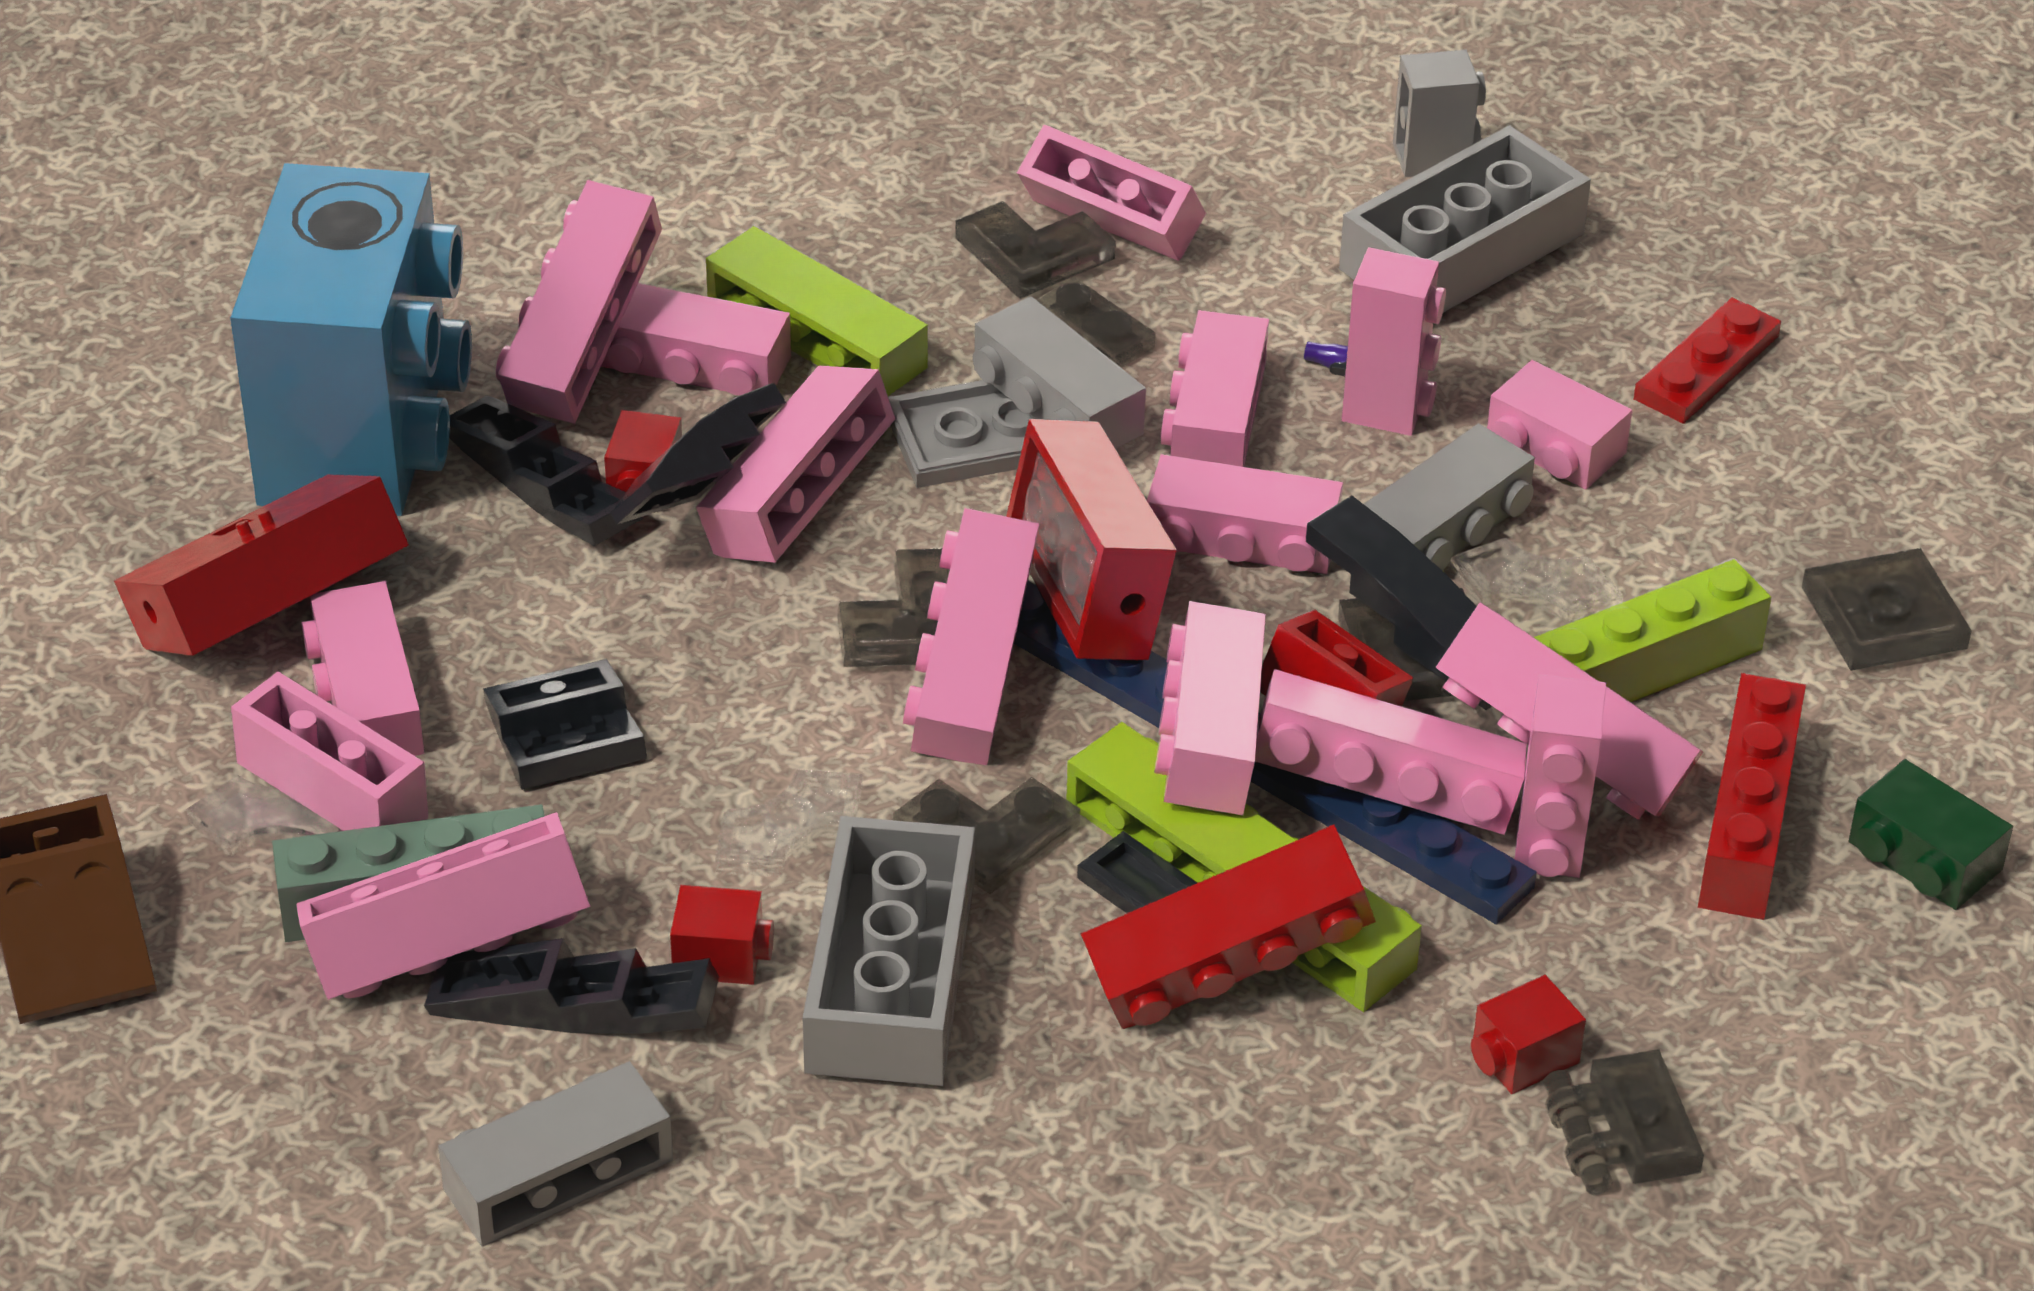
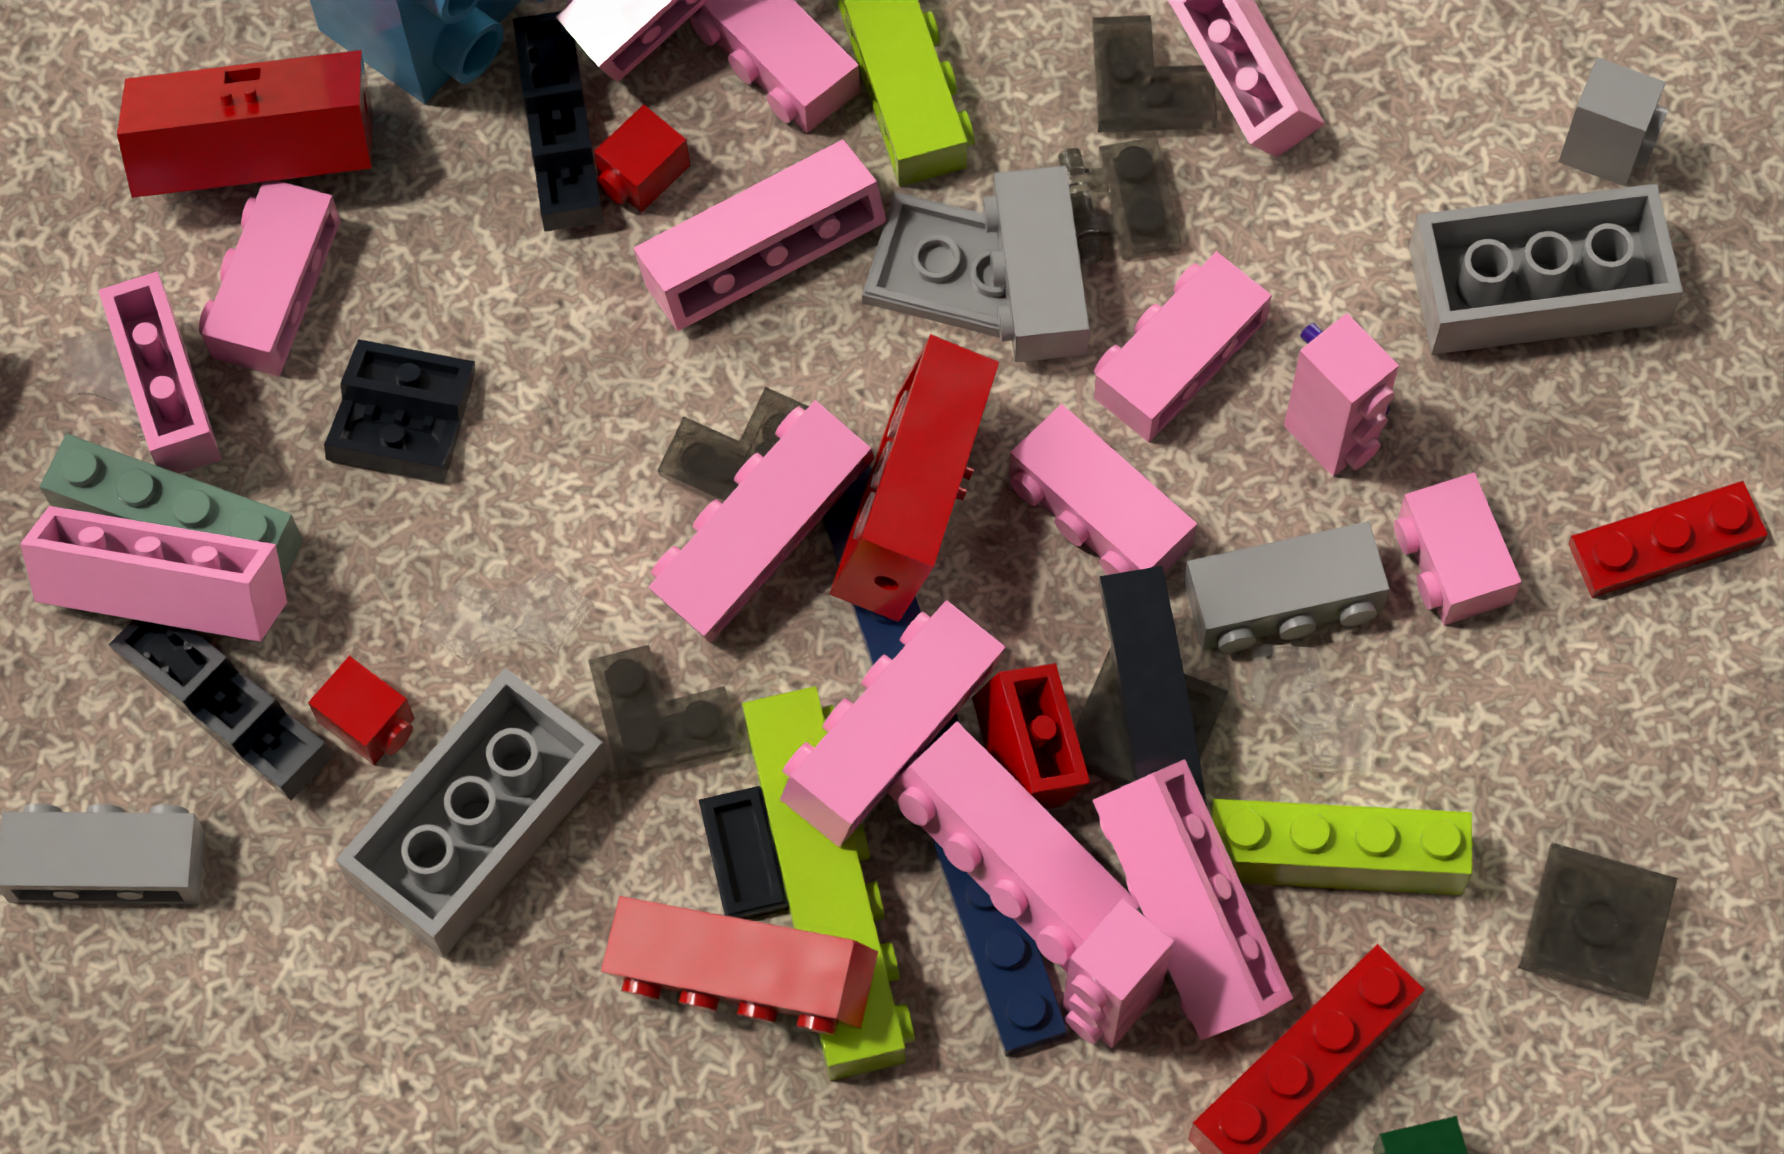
camera: 35 degrees right, 25 degrees up
(699, 455) = (652, 198): black slope -> none

